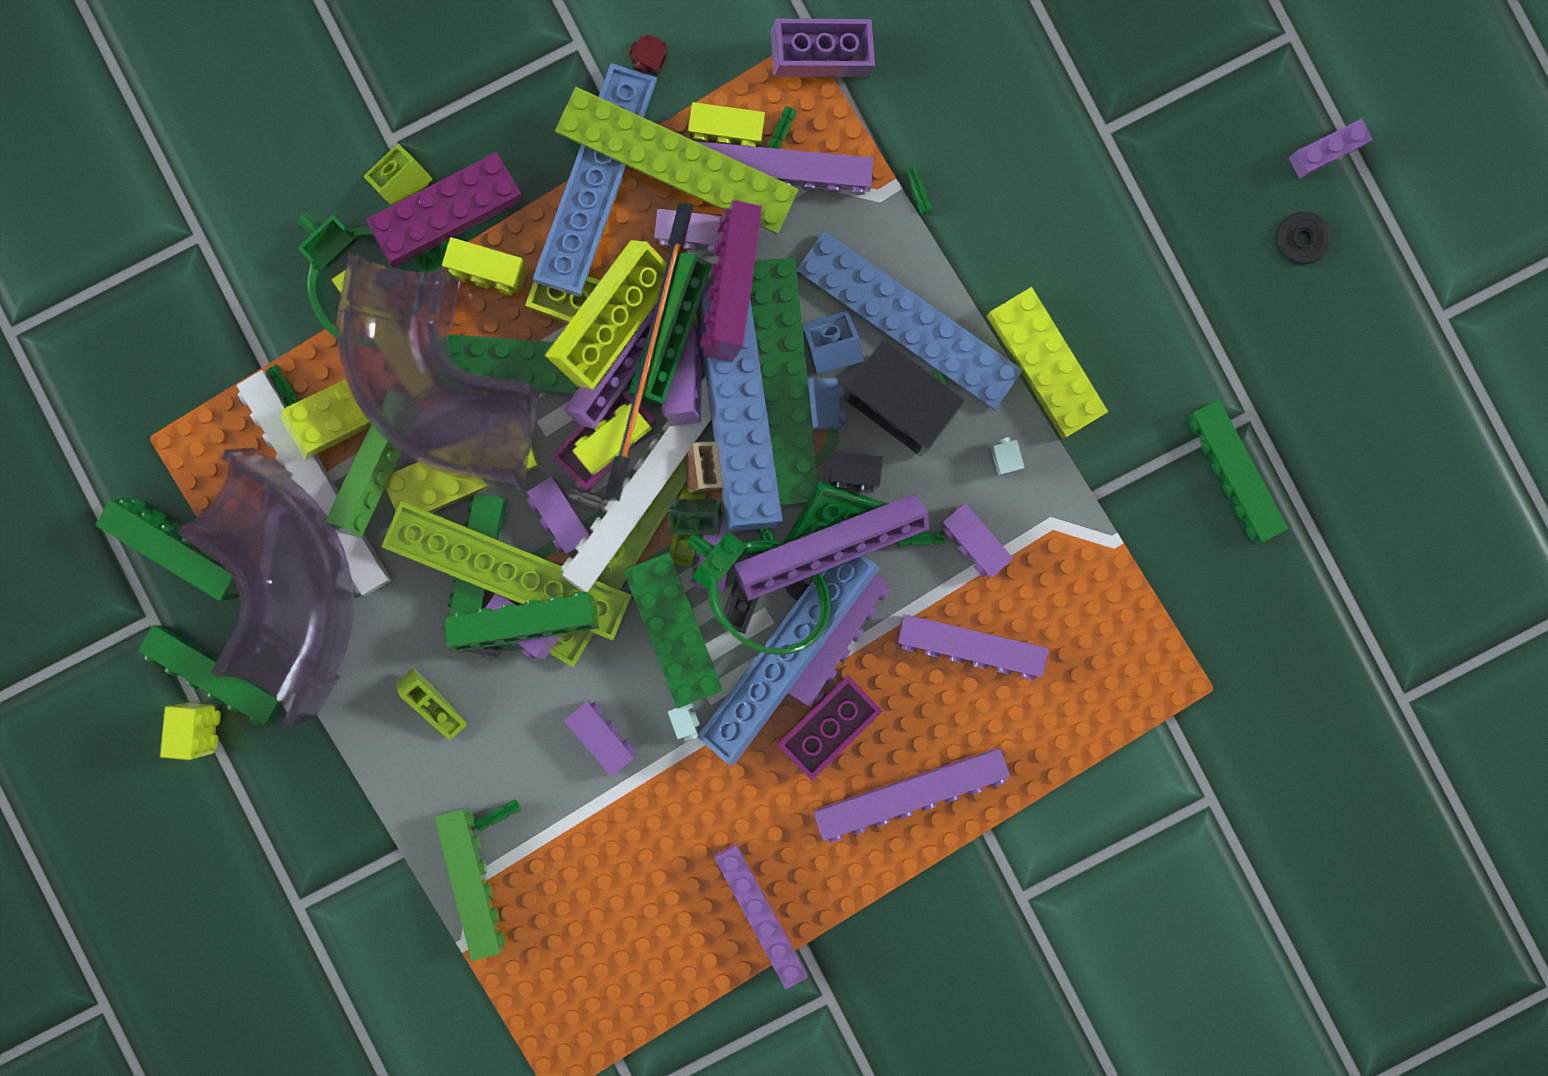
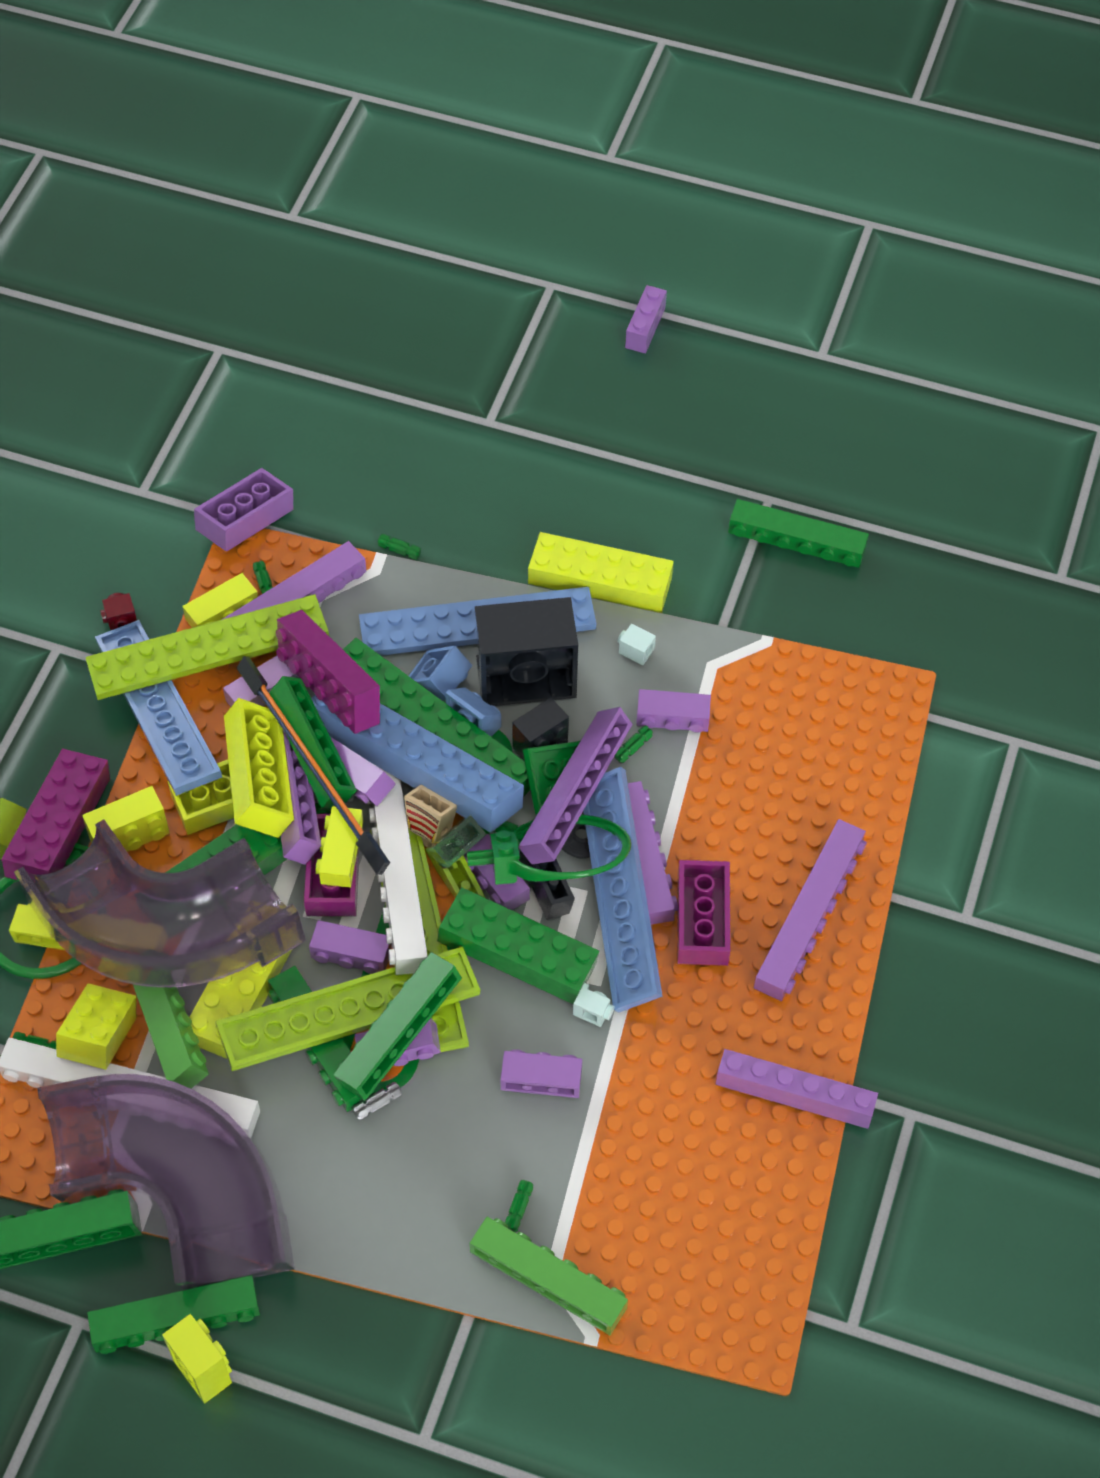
camera: 45 degrees left, 30 degrees down
(430, 704) = (380, 1167): lime slope -> none
(587, 499) = (364, 918): light grey axle -> none
(973, 646) = (743, 777): medium lavender brick -> none
(1288, 237) = (678, 388): black wheel -> none

